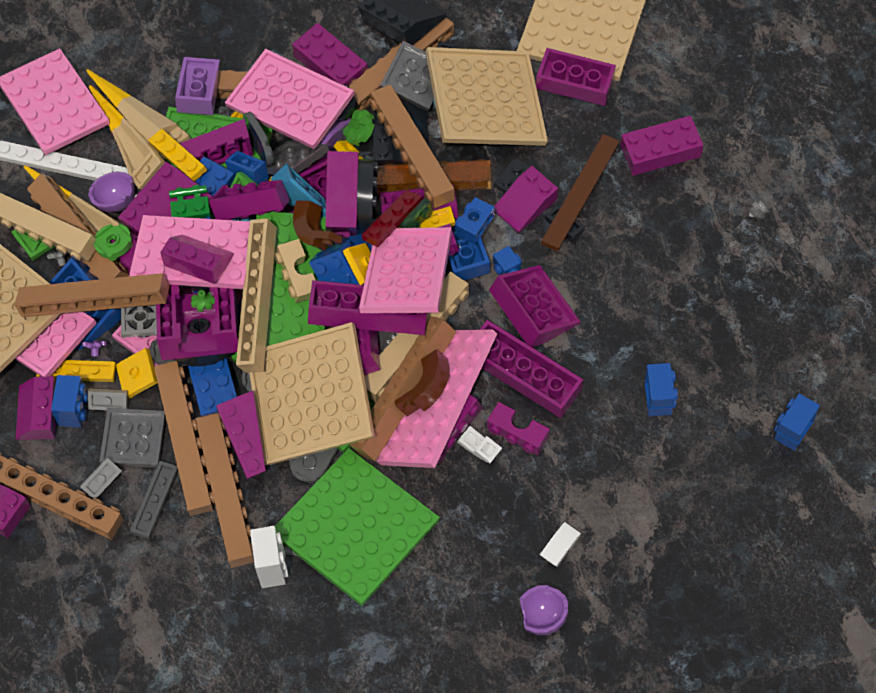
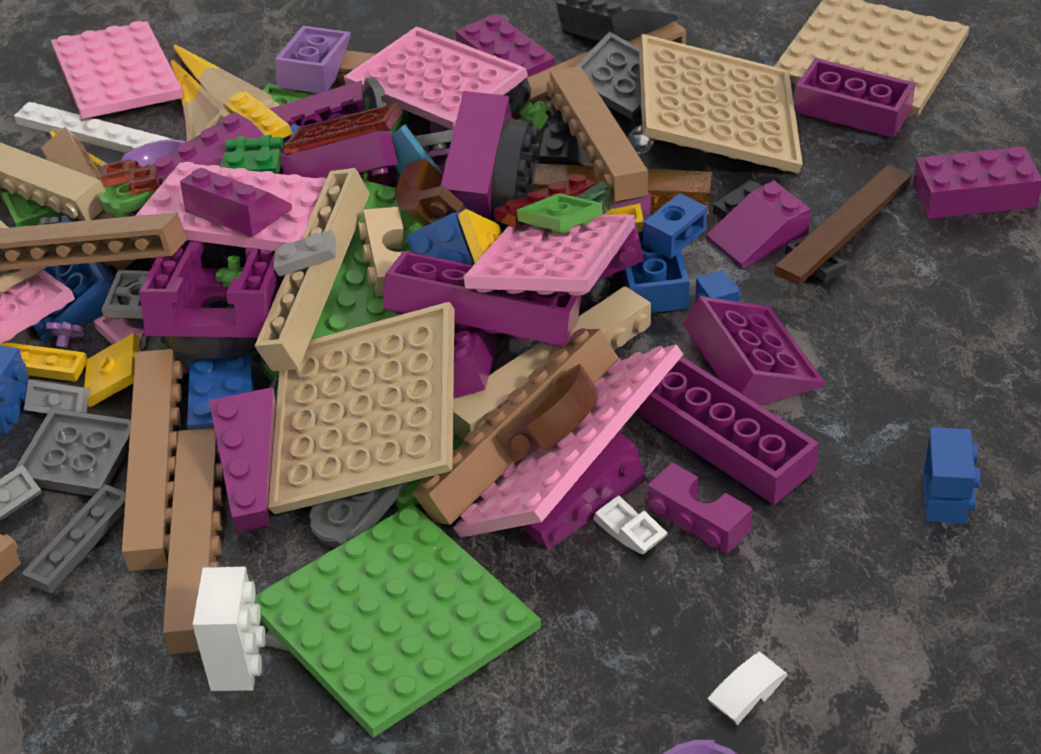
camera: 10 degrees right, 20 degrees down
(106, 223) = (138, 177): none -> clear red tile
(245, 172) = (343, 128): none -> clear red tile
(251, 292) = (305, 252): none -> light grey plate
(404, 235) = (559, 213): none -> bright green plate

